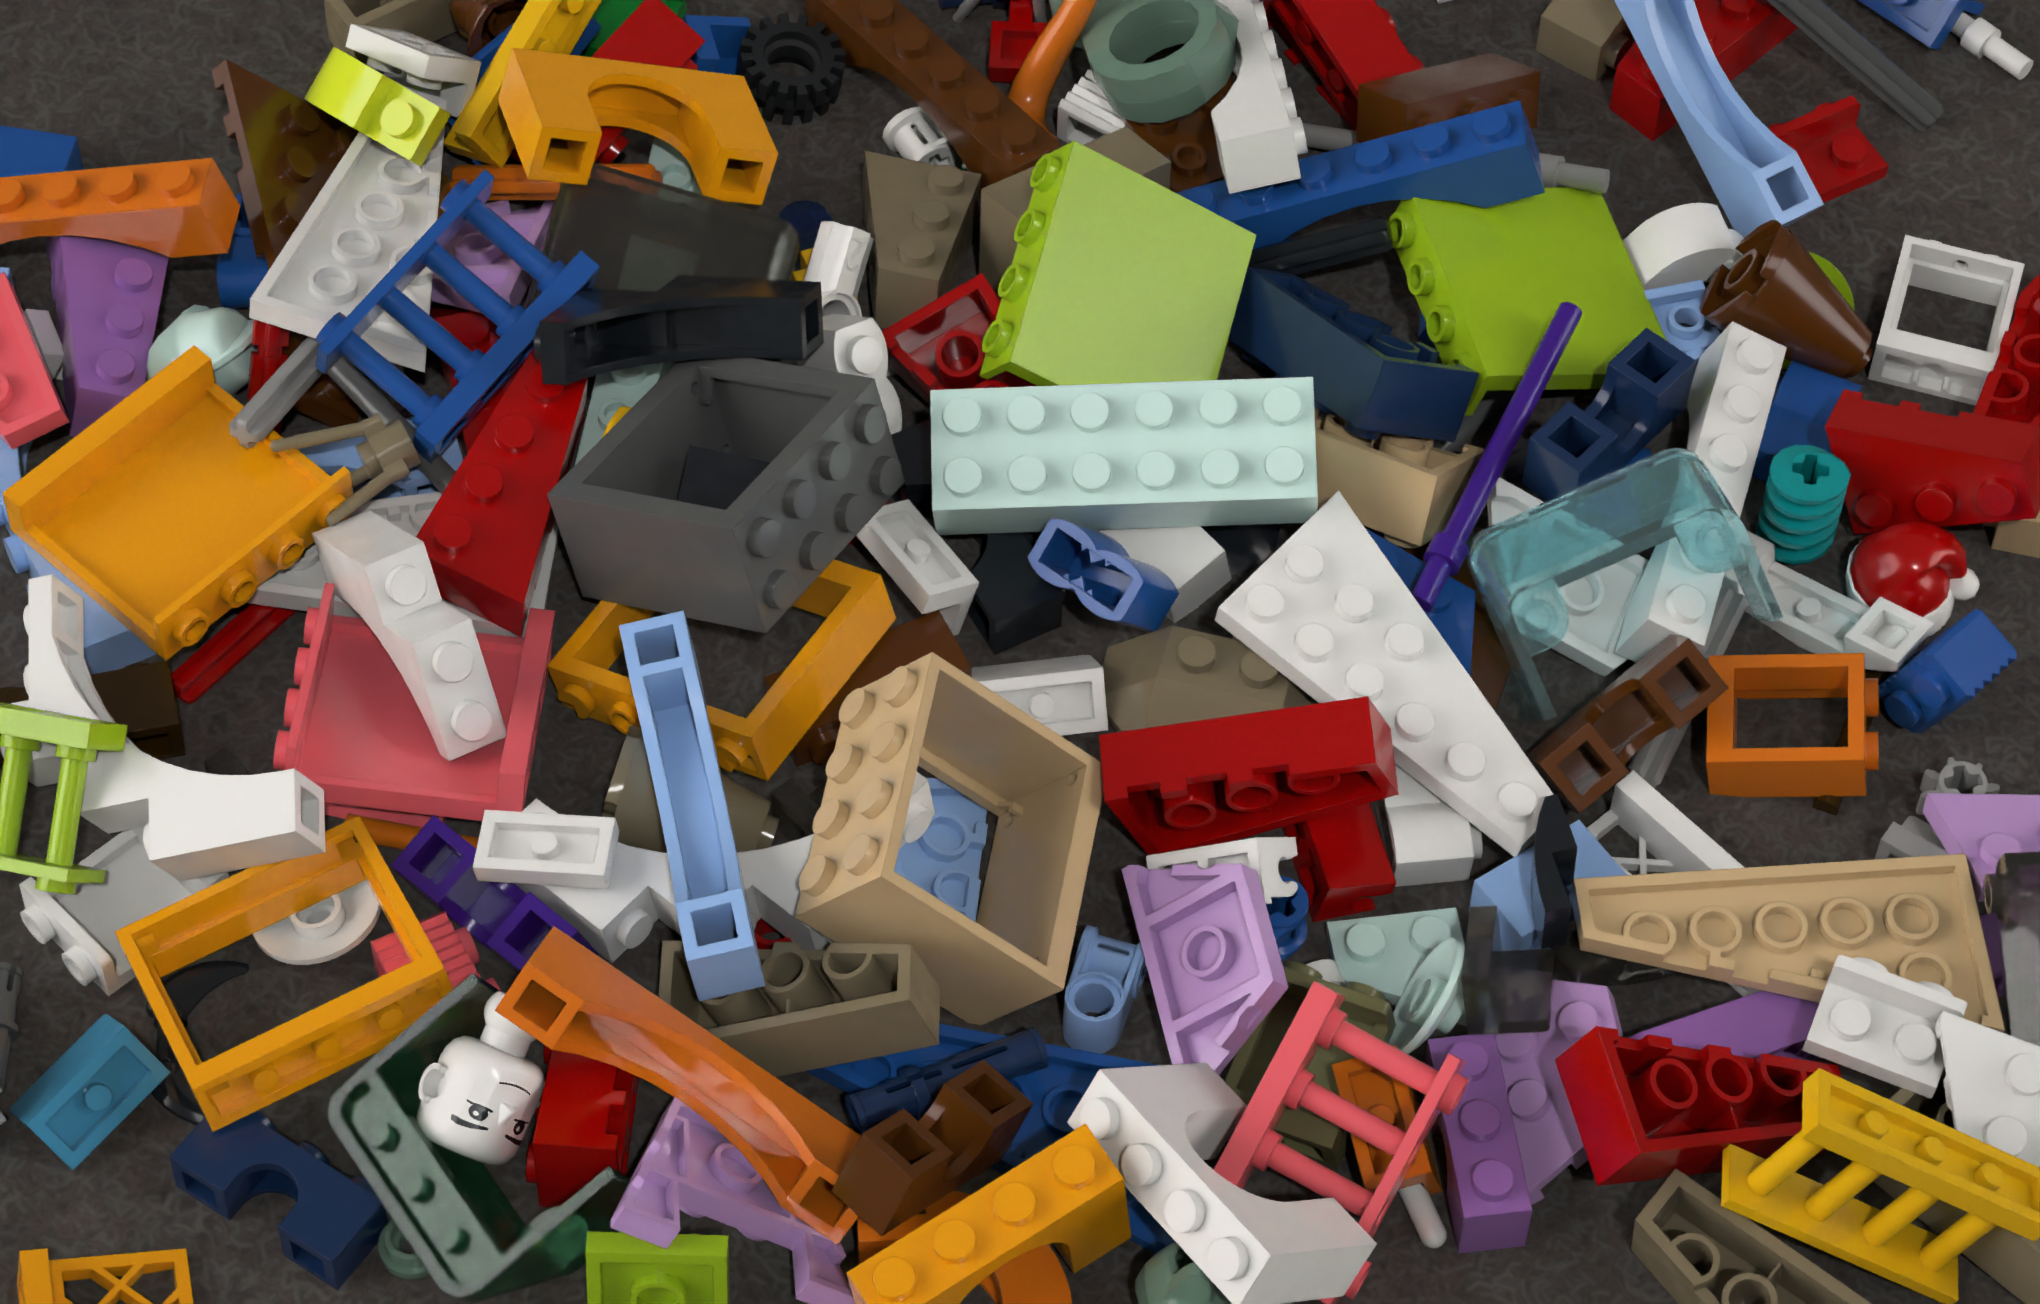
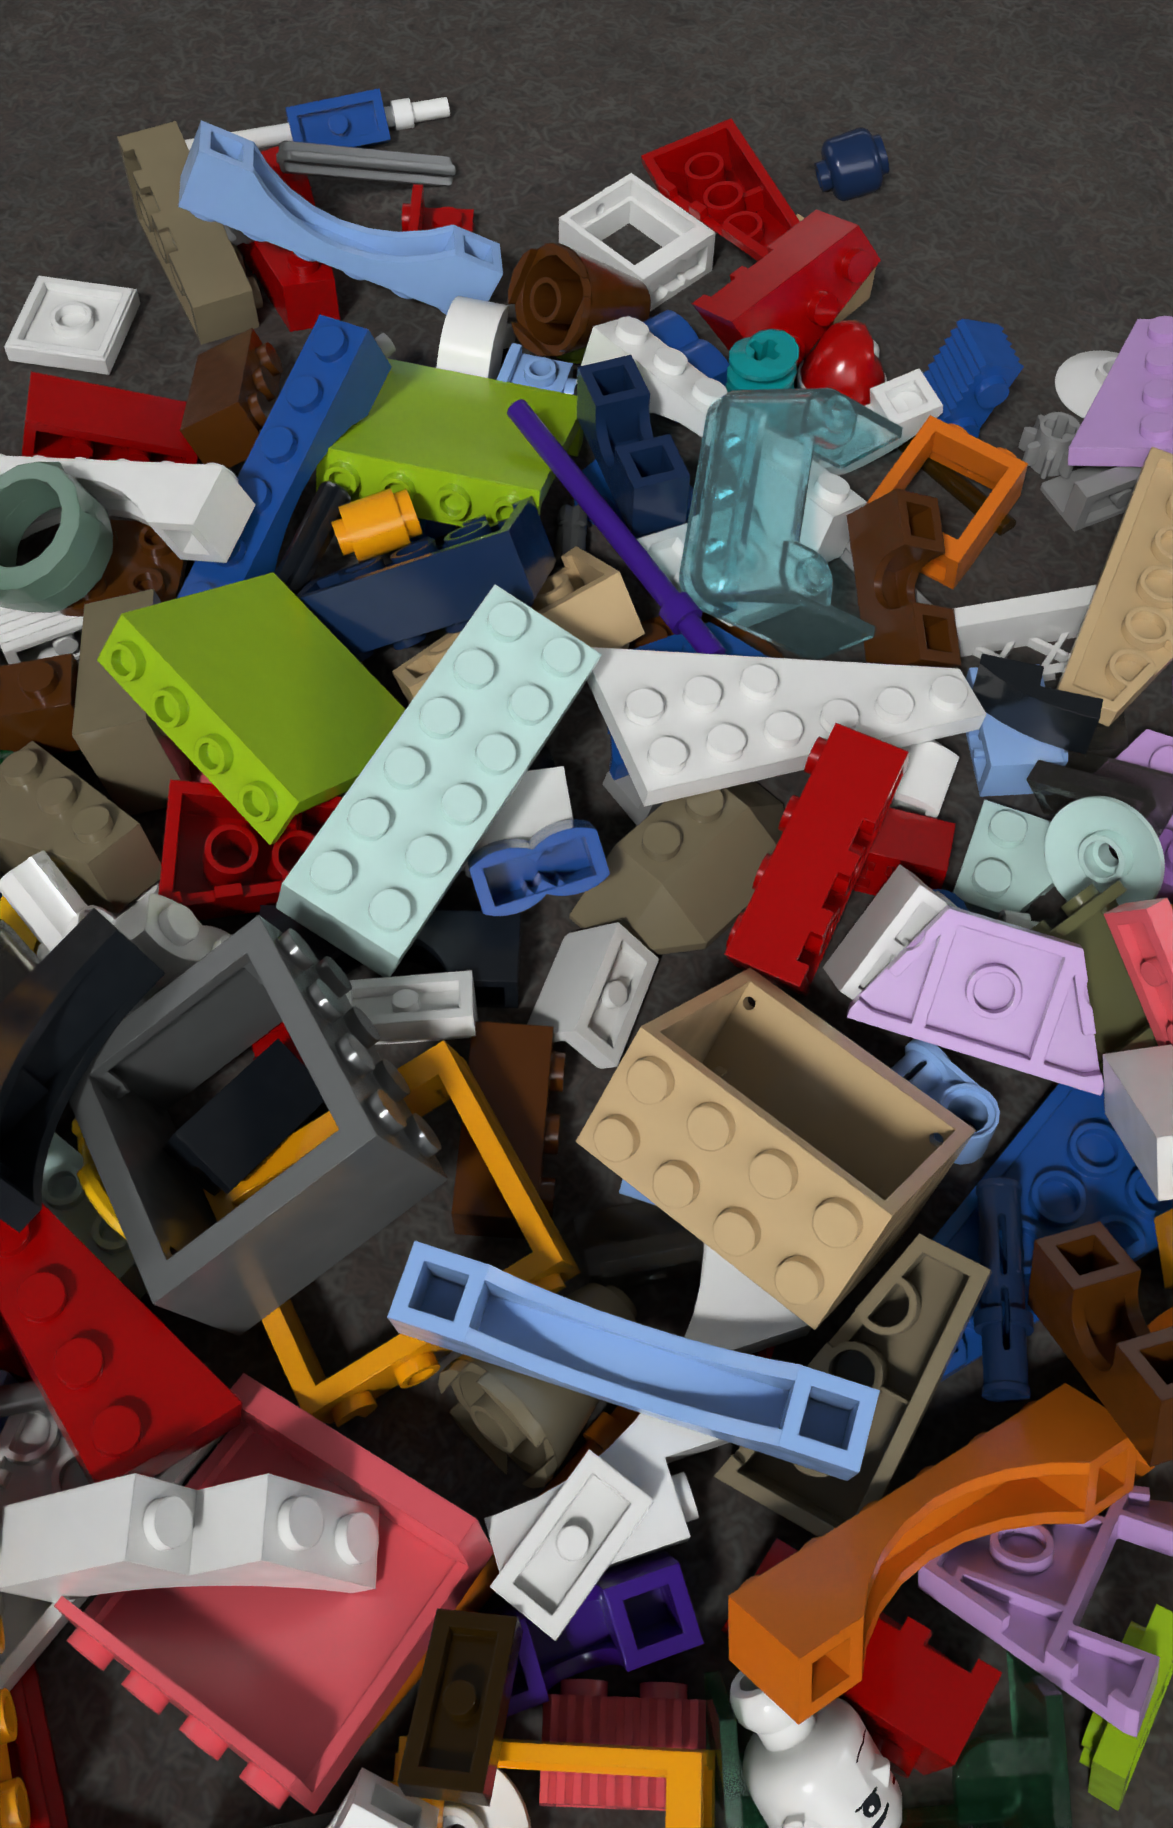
camera: 60 degrees left, 5 degrees up
(396, 826) = (461, 1707): none -> dark brown plate
(1371, 282) = (376, 524): none -> light orange brick

